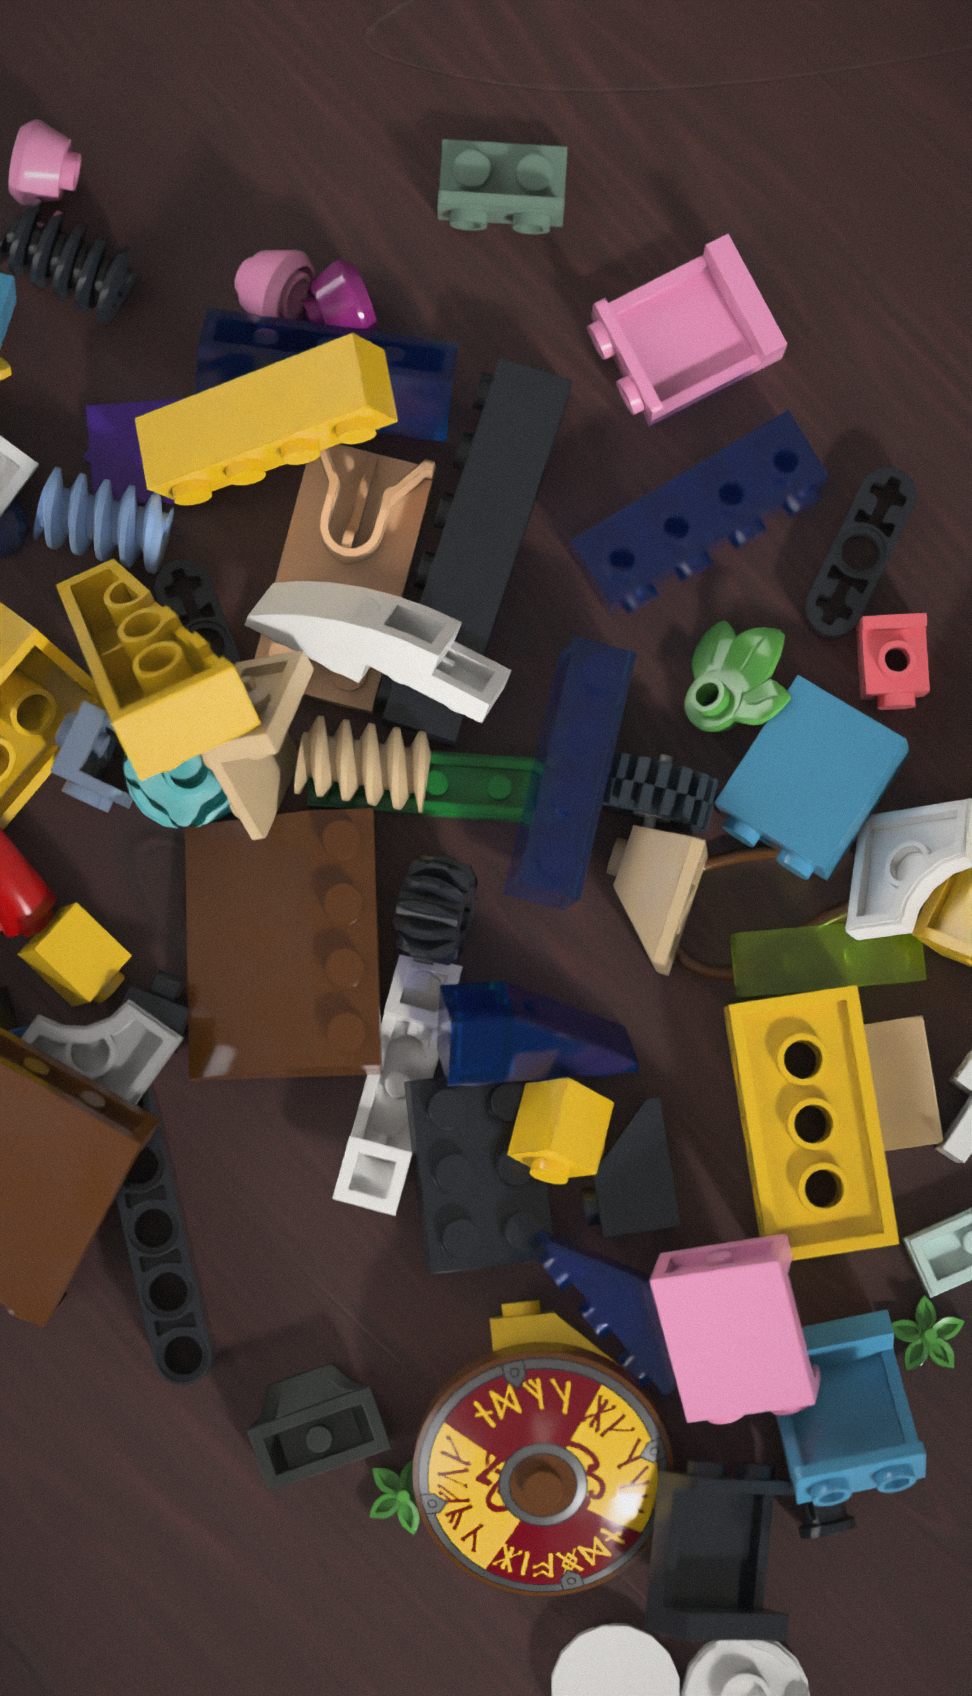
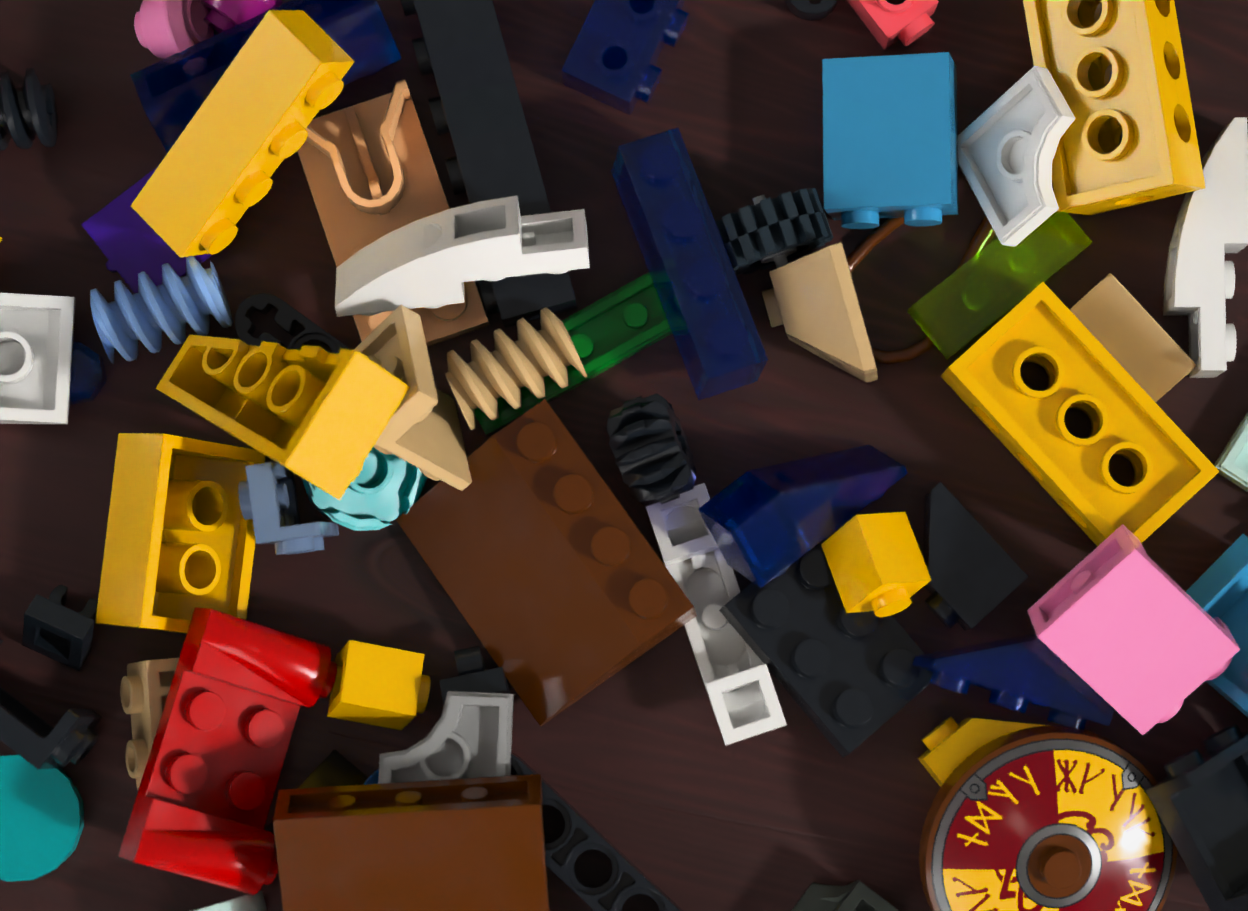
camera: 25 degrees left, 0 degrees up
(740, 674) = (772, 89): bright green plate -> none

